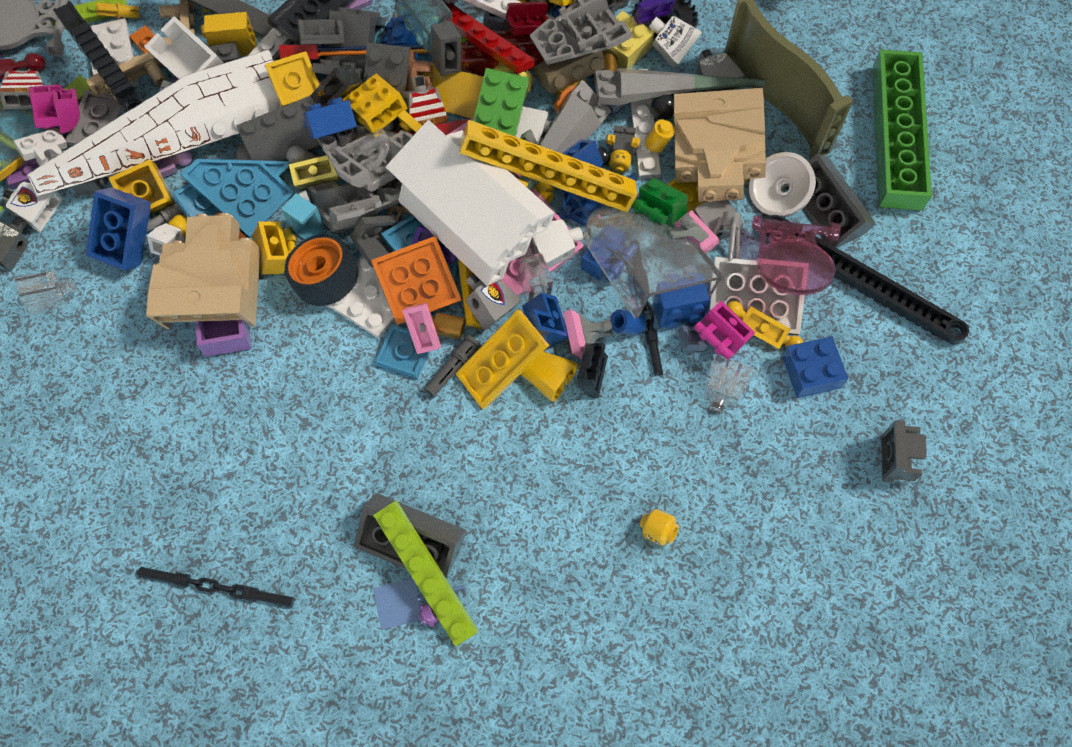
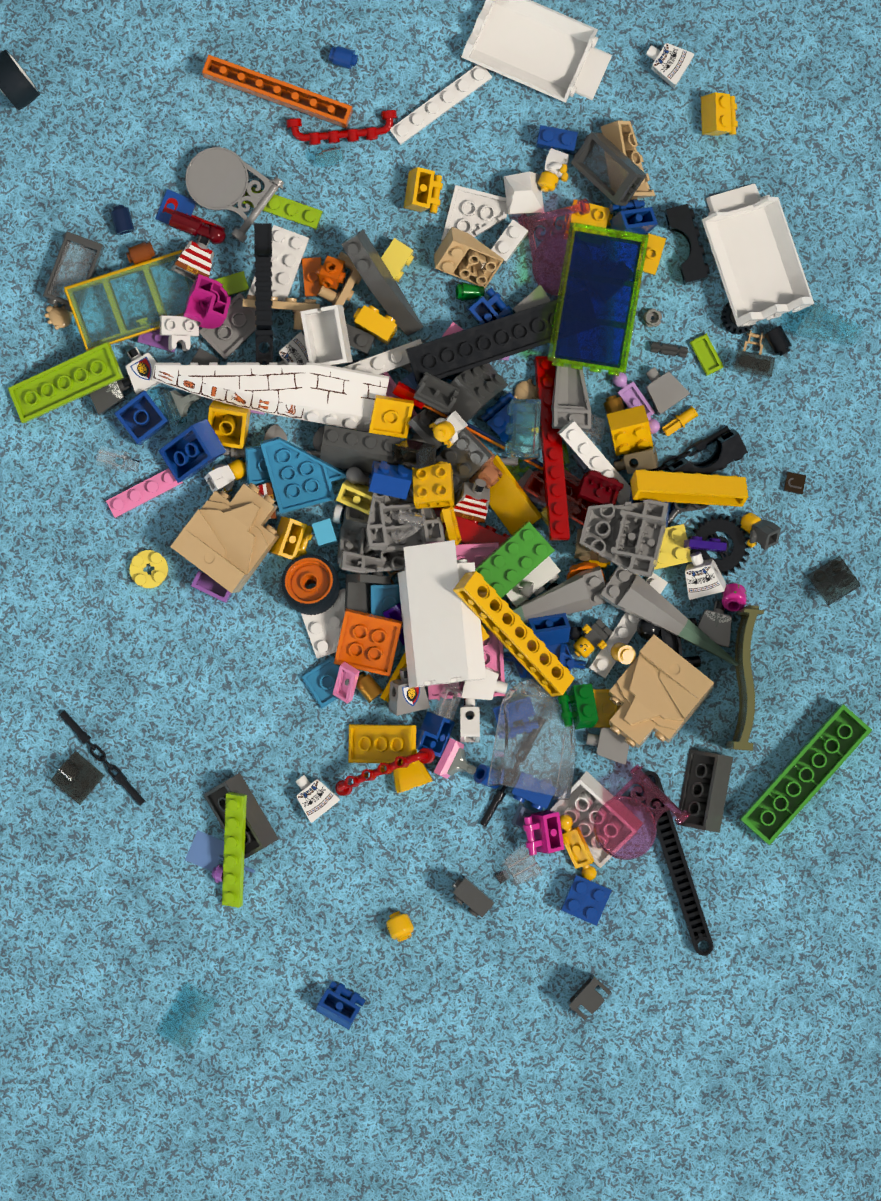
camera: 30 degrees right, 20 degrees up
(51, 239) = (141, 418): none -> blue brick
(78, 208) = (176, 405): none -> piece
(97, 306) = (142, 493): none -> bright pink plate
(117, 10) = (307, 230): yellow axle -> none
(135, 365) = (156, 577): none -> light yellow plate
(157, 20) = (331, 272): none -> orange brick
(199, 626) = (77, 777): none -> clear smoke plate
(352, 48) = (448, 429): none -> piece
(446, 48) = (517, 475): dark grey brick -> none
(458, 358) = (360, 715): dark grey pin -> none
(474, 463) = (315, 798): none -> white torso
(496, 434) = (345, 786): none -> red bar
(571, 287) = (469, 728): none -> white torso
(592, 369) = (438, 792): black slope -> none
(665, 658) = (337, 1007): none -> blue brick
(695, 230) = (584, 747): piece -> none
(707, 439) = (471, 895): none -> dark grey brick
(713, 40) = (734, 597): none -> dark pink head
(730, 224) = (612, 761): light grey plant -> none
(781, 171) = (668, 756): white dish -> none

